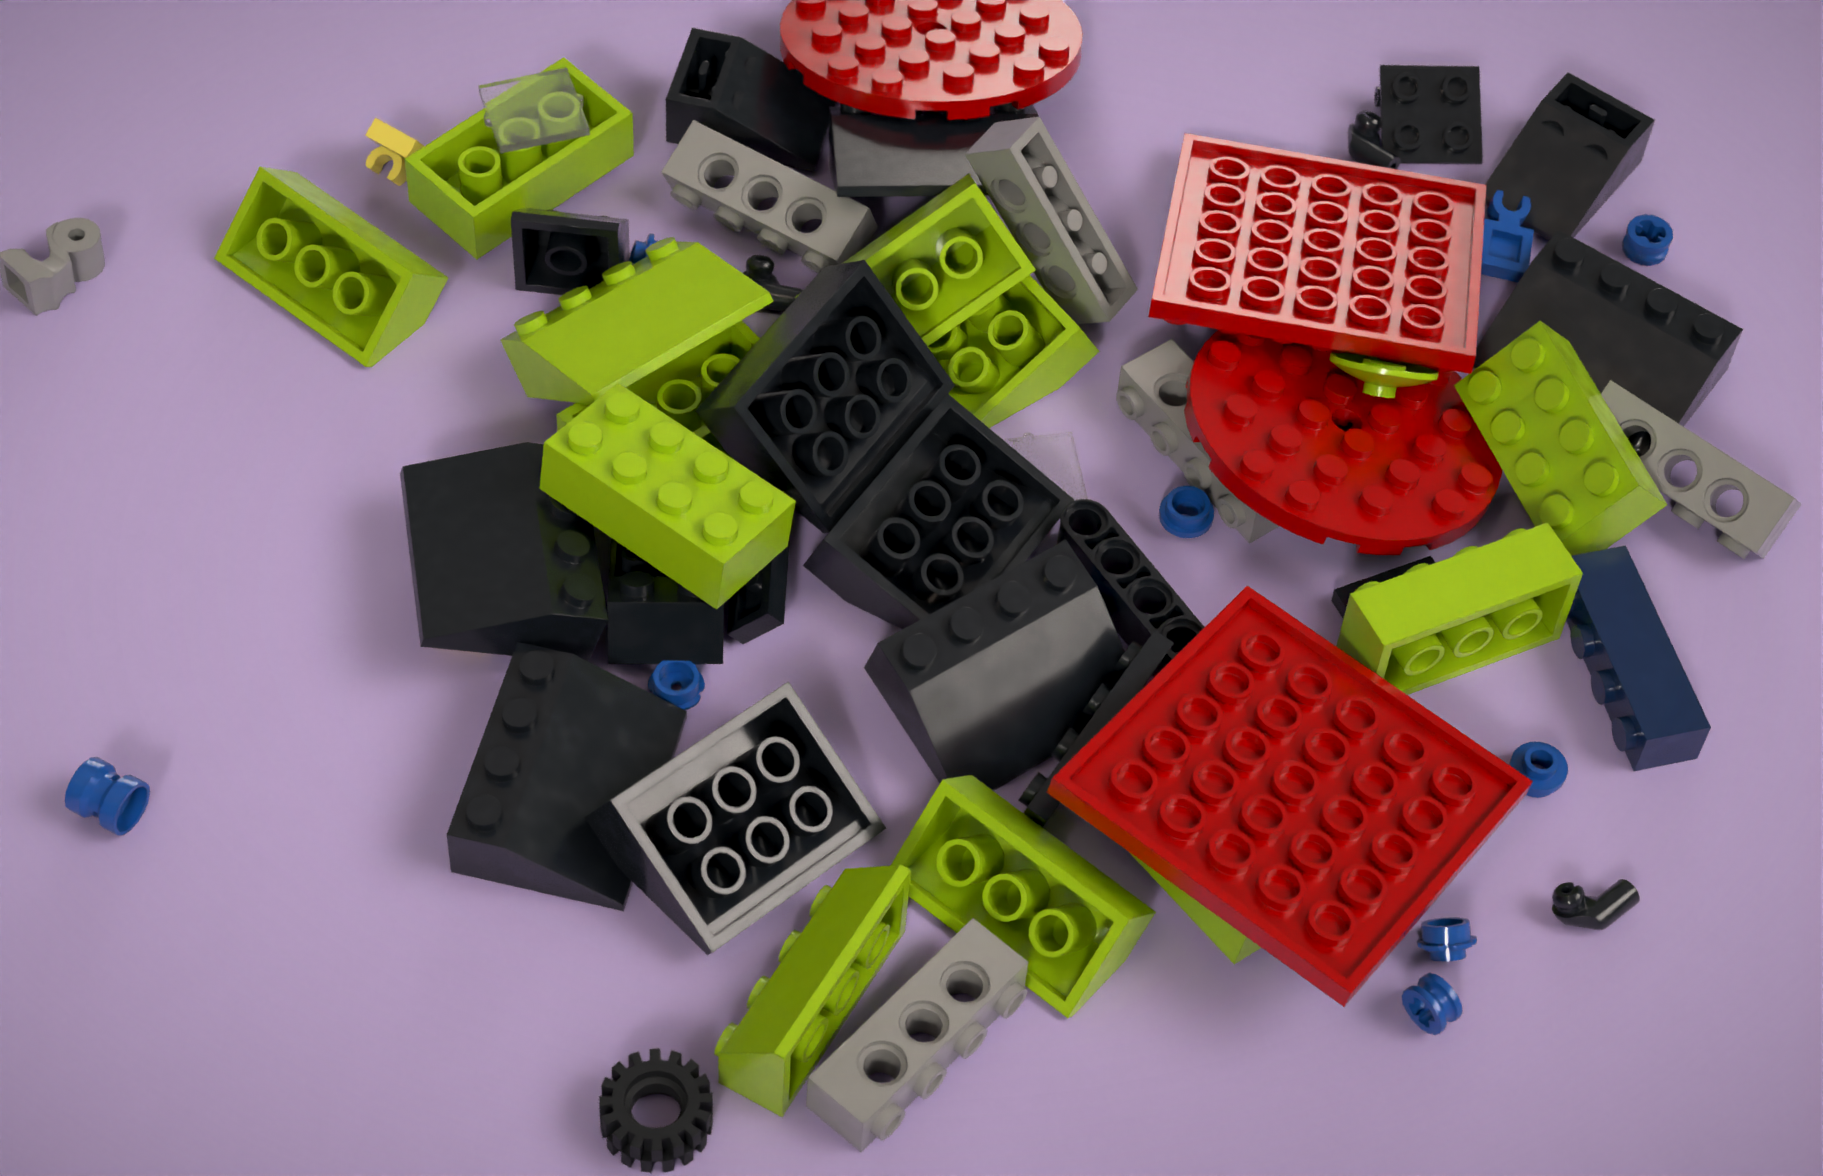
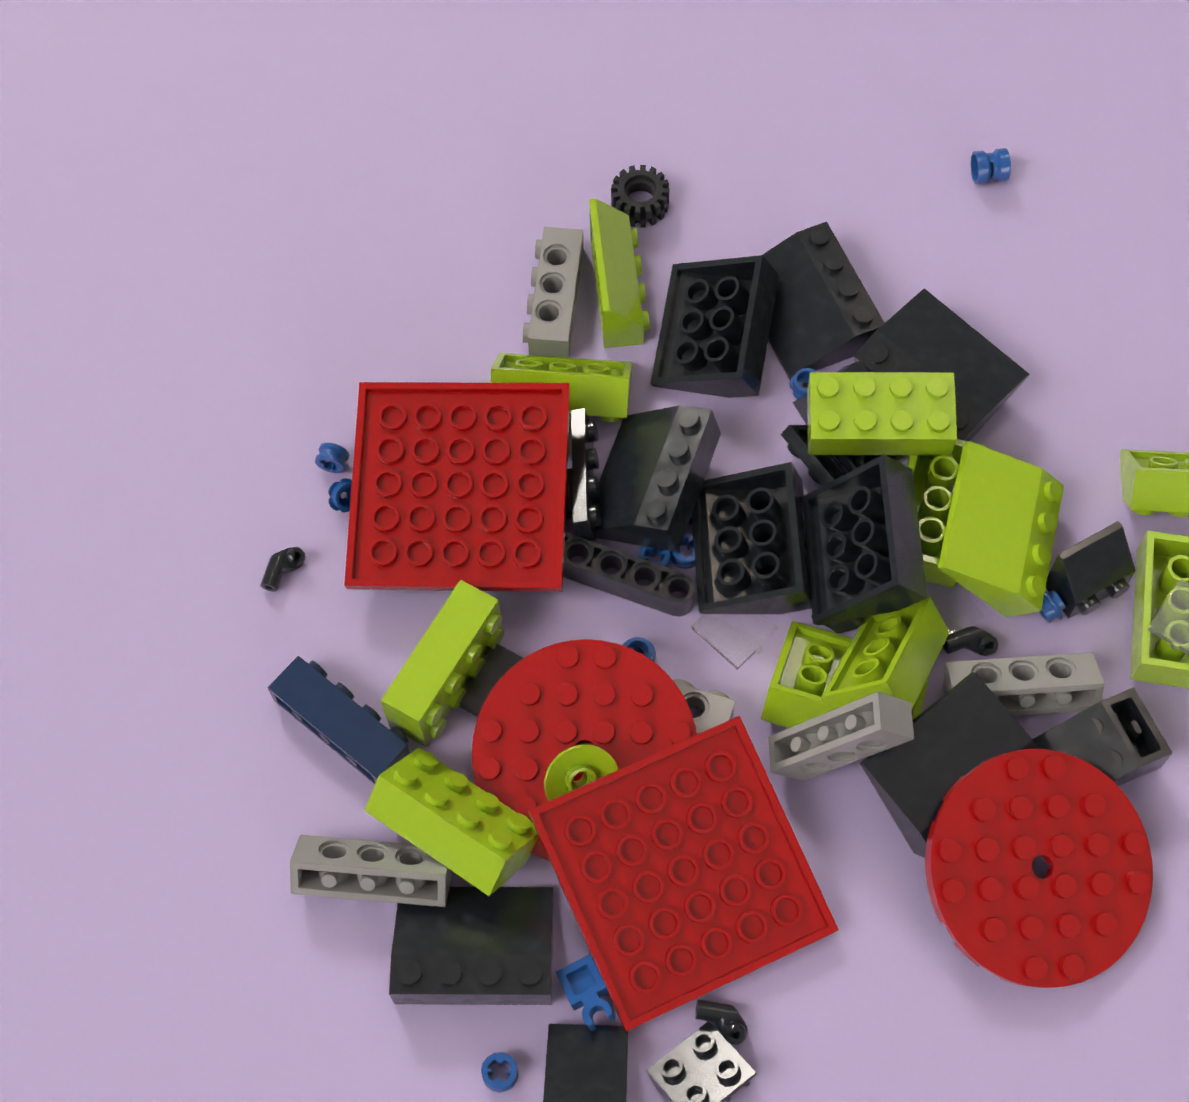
camera: 150 degrees right, 10 degrees up
(1544, 780) = (355, 634): blue plate -> none

